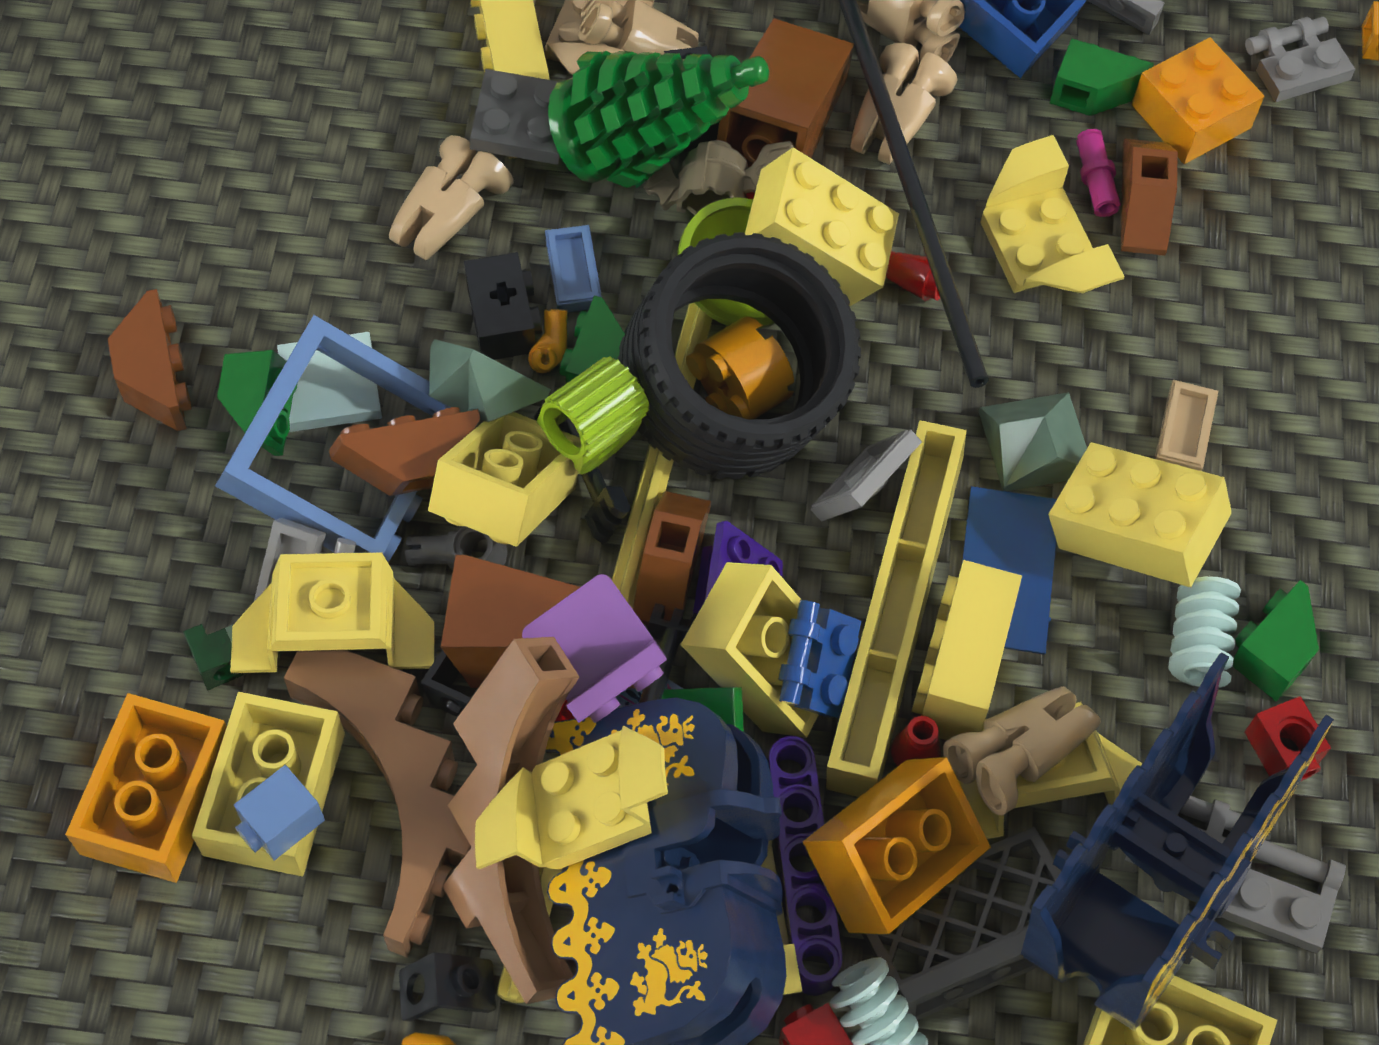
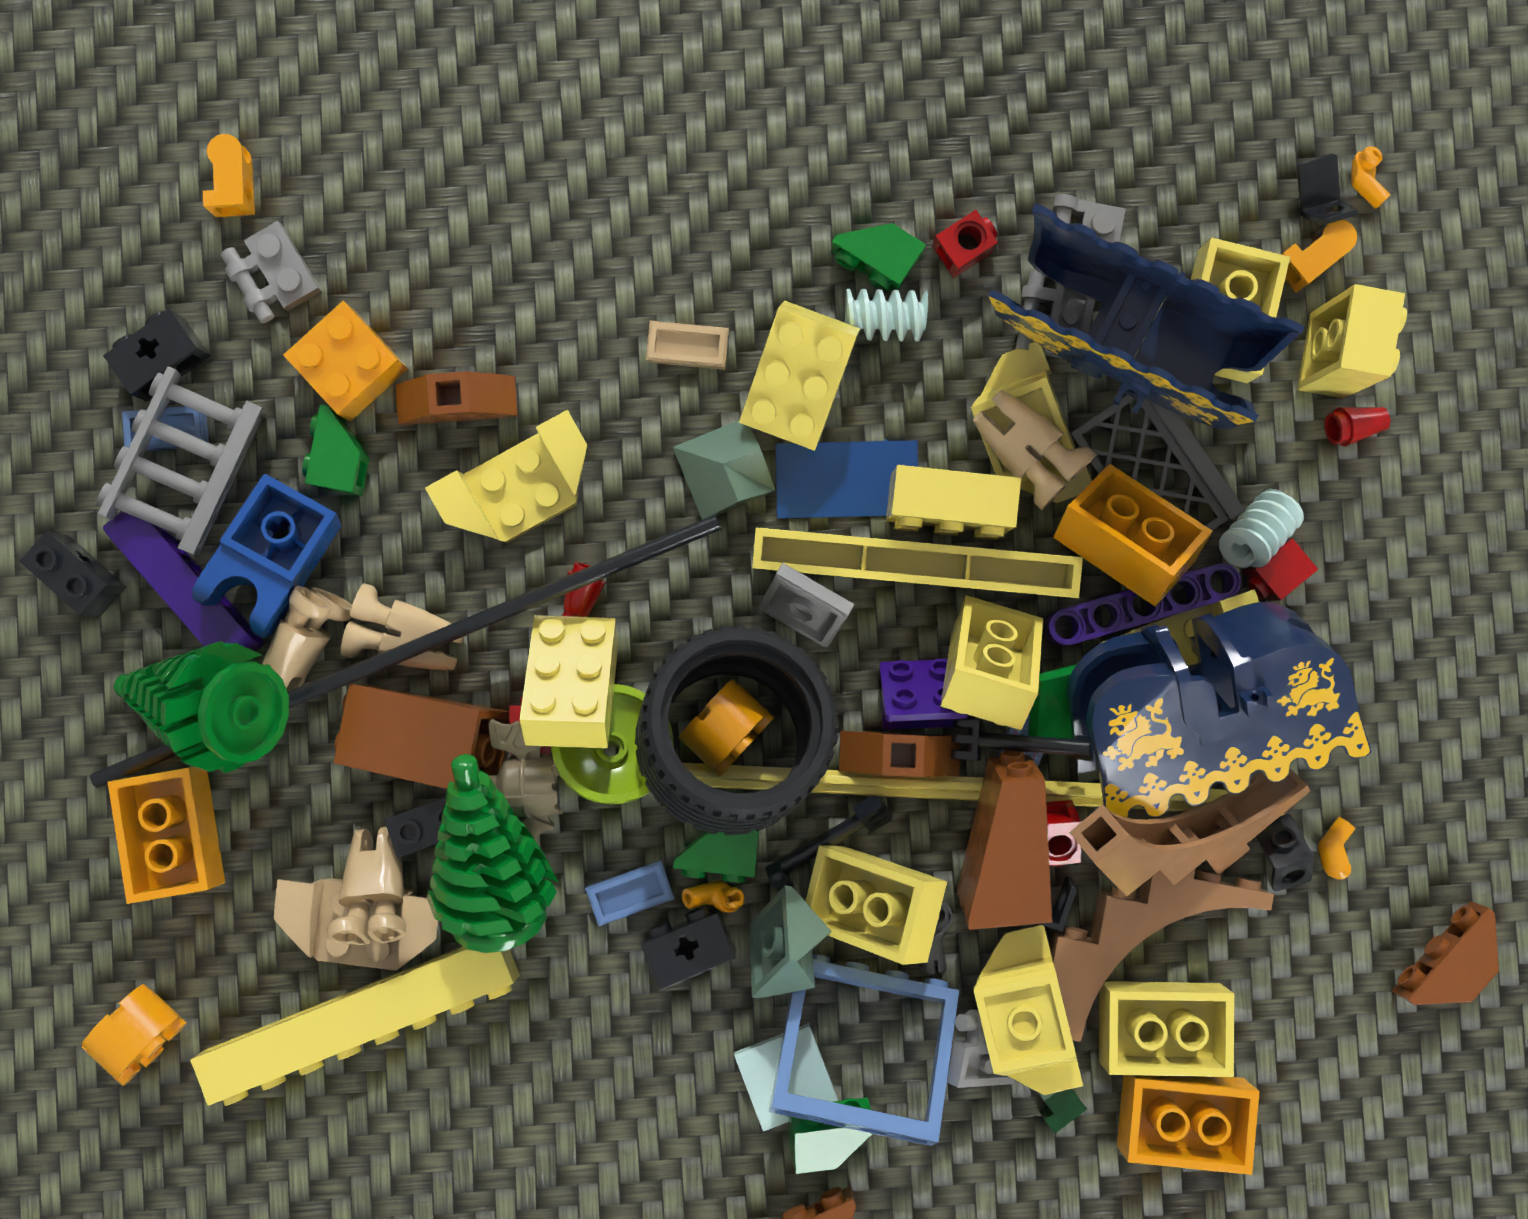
camera: 95 degrees left, 25 degrees up
(277, 813) = (1215, 1015): medium blue brick -> none
(404, 452) = (872, 990): dark orange slope -> none
(443, 207) = (590, 1022): tan piece -> none
(514, 117) = (500, 982): dark grey plate -> none
(574, 803) = (1190, 790): light yellow piece -> none
(603, 406) = (818, 845): lime piece -> none
(603, 645) = (1062, 790): medium lavender bracket -> none
(819, 659) = (994, 617): blue plate -> none
(917, 741) = (1020, 538): red cone -> none
(1098, 172) = (440, 444): dark pink pin -> none

